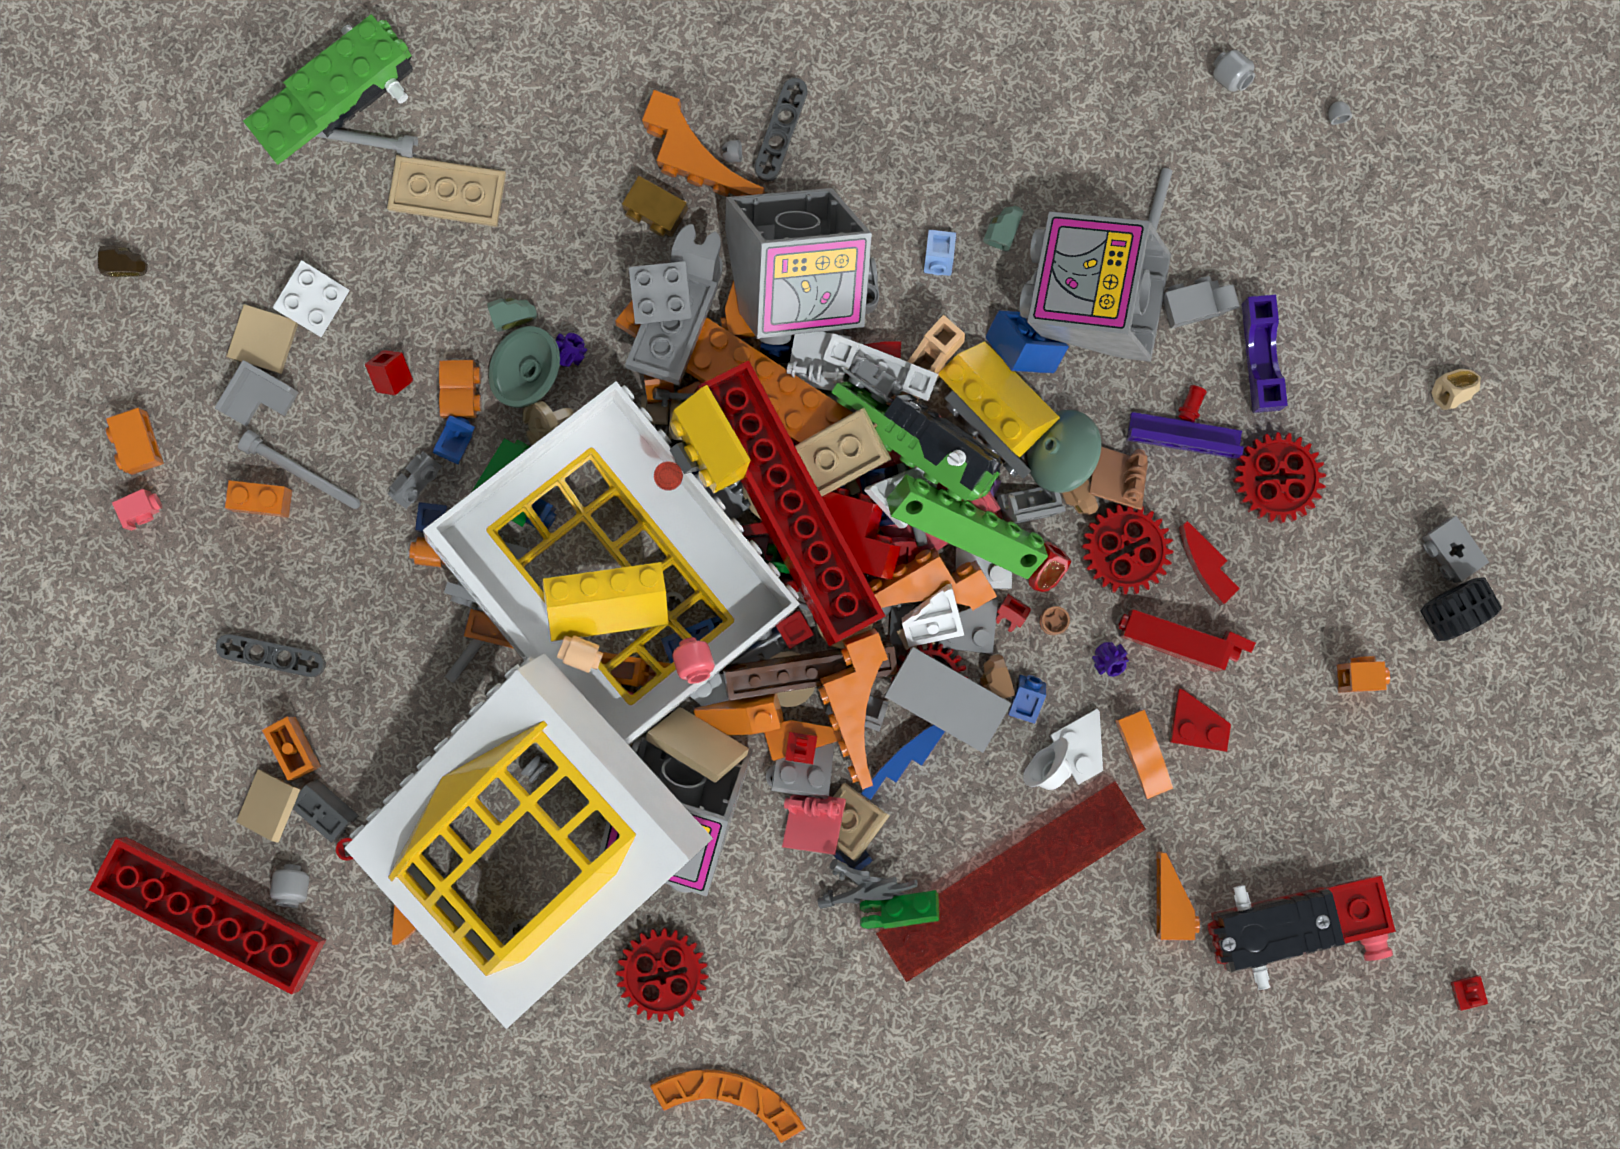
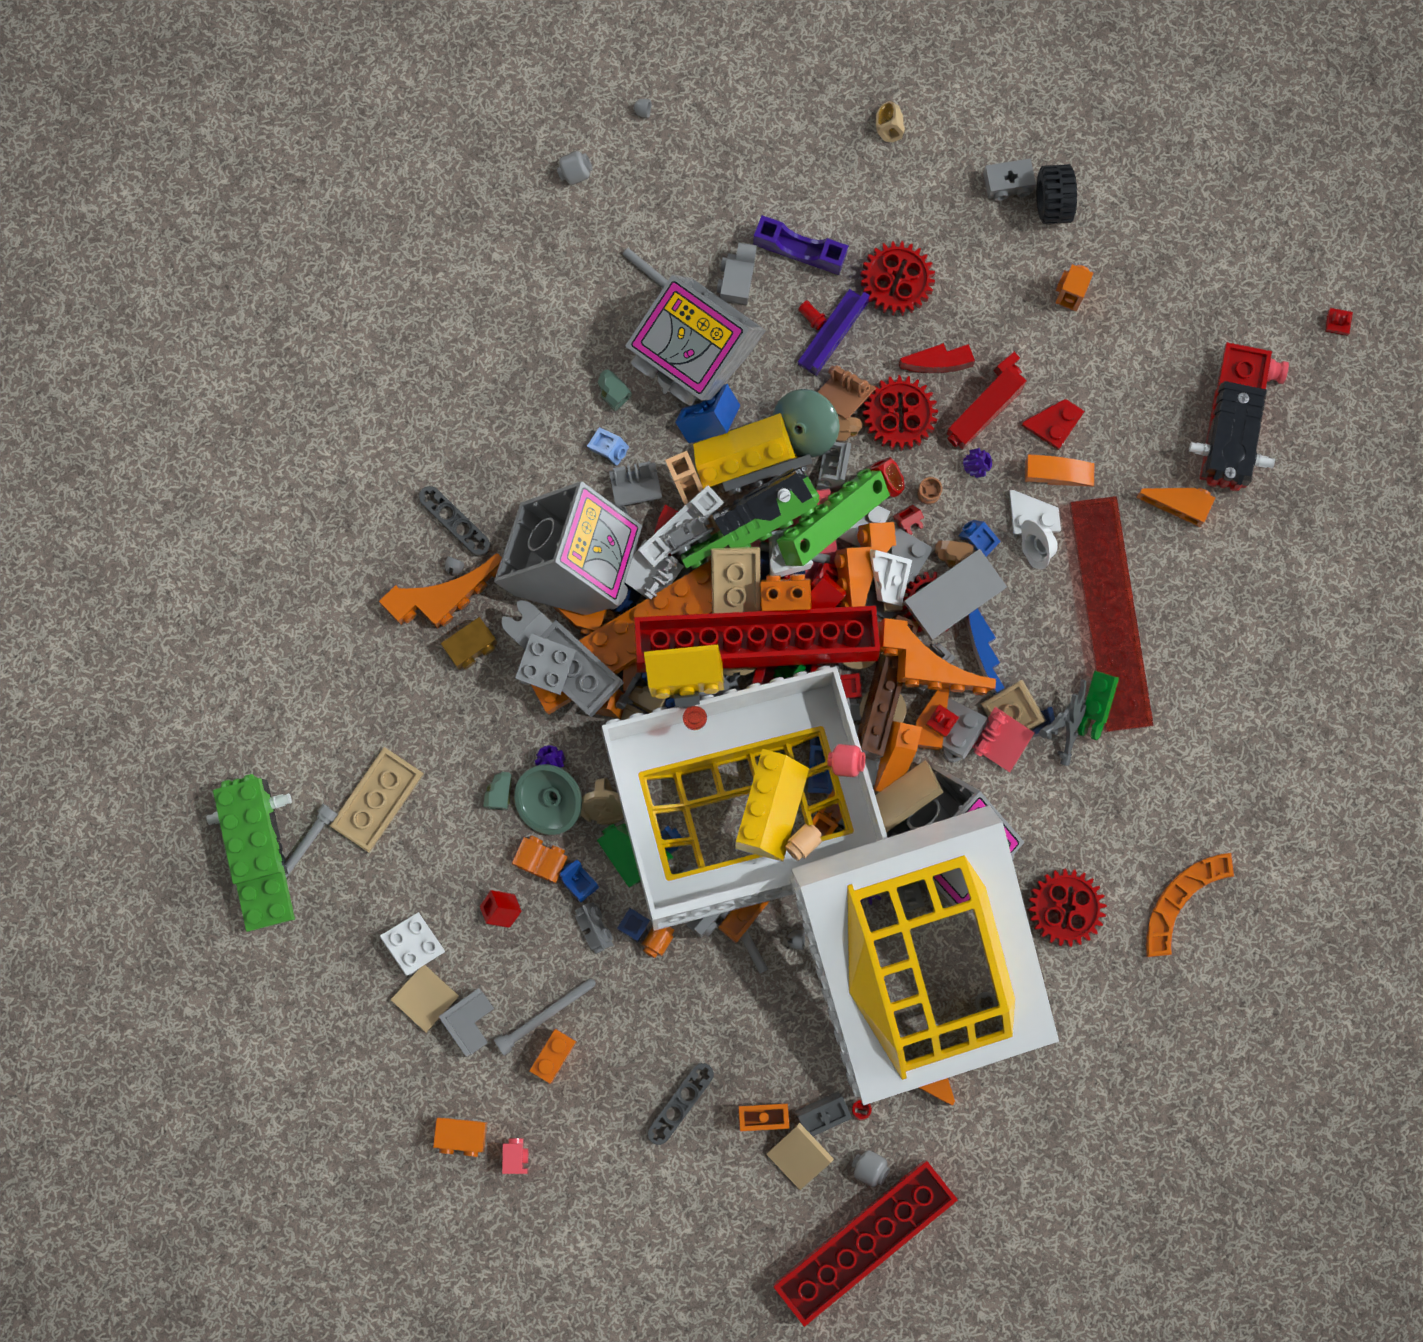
camera: 70 degrees left, 5 degrees down
(120, 262) = (309, 1082): dark brown rock -> none
(853, 512) = (786, 593): none -> orange brick
(908, 300) = (635, 485): none -> light grey hinge

